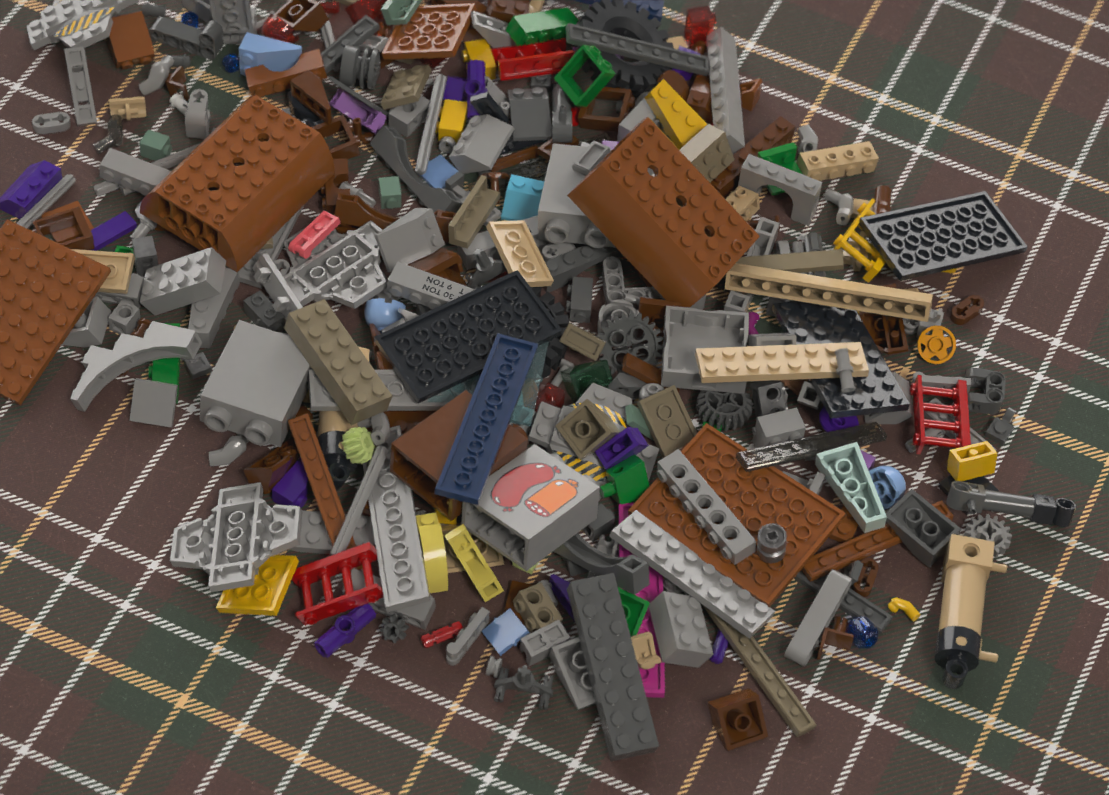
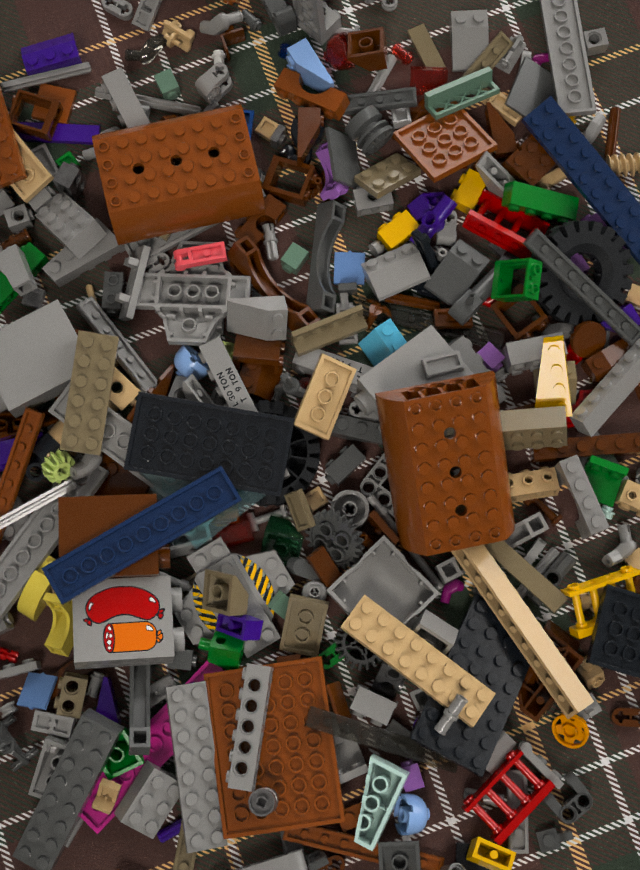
camera: 50 degrees right, 25 degrees up
(430, 124) = (375, 223): light grey axle -> none

